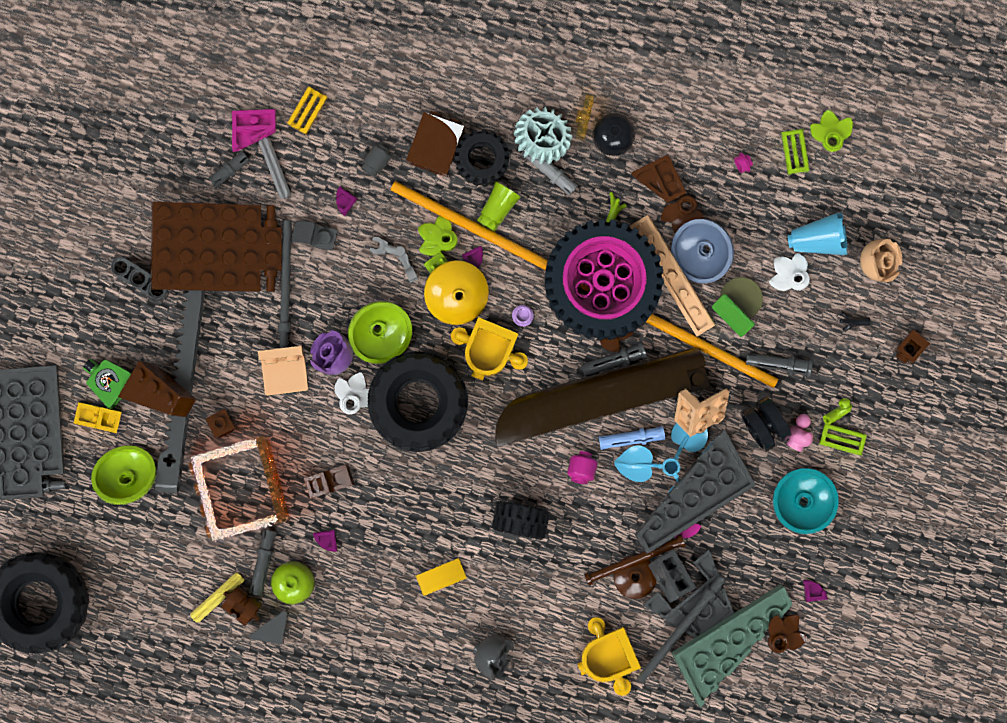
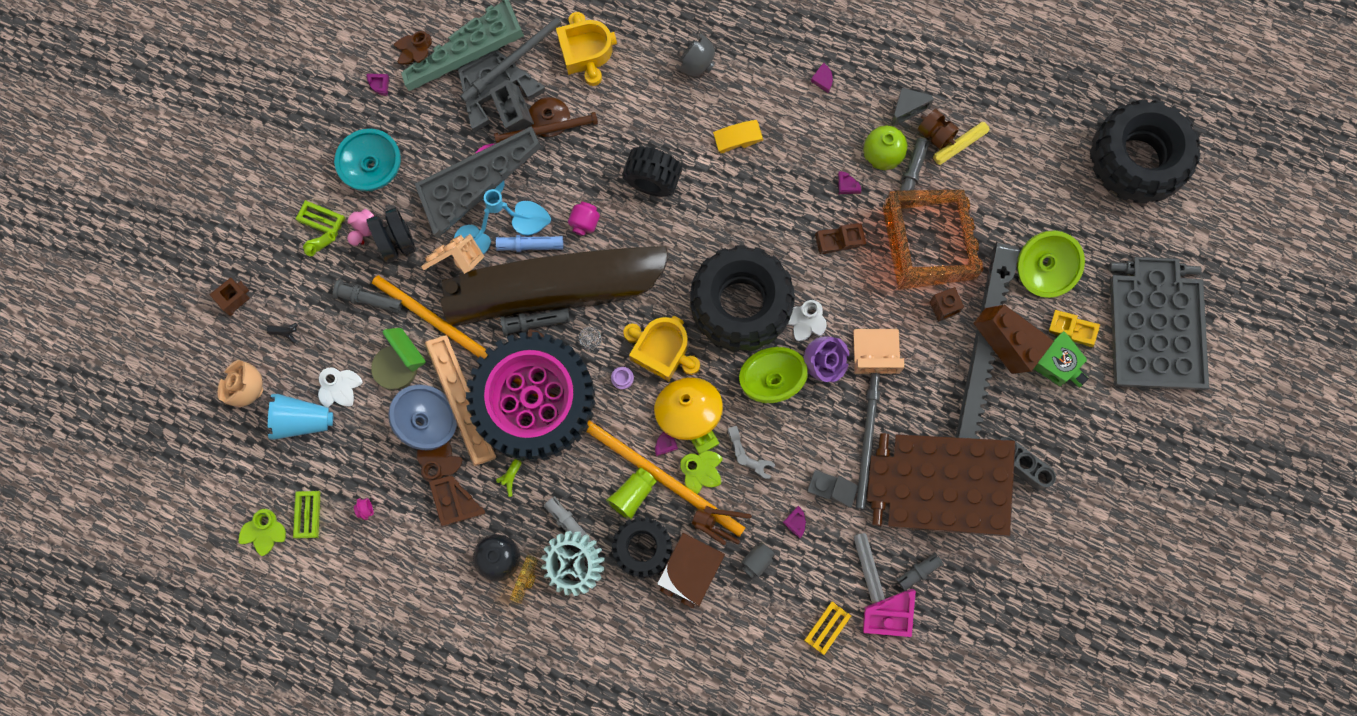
camera: 170 degrees left, 10 degrees down
(361, 652) = (823, 78): none -> magenta tile
(428, 189) = (704, 521): none -> reddish brown plant
(559, 345) = (590, 334): none -> clear wheel

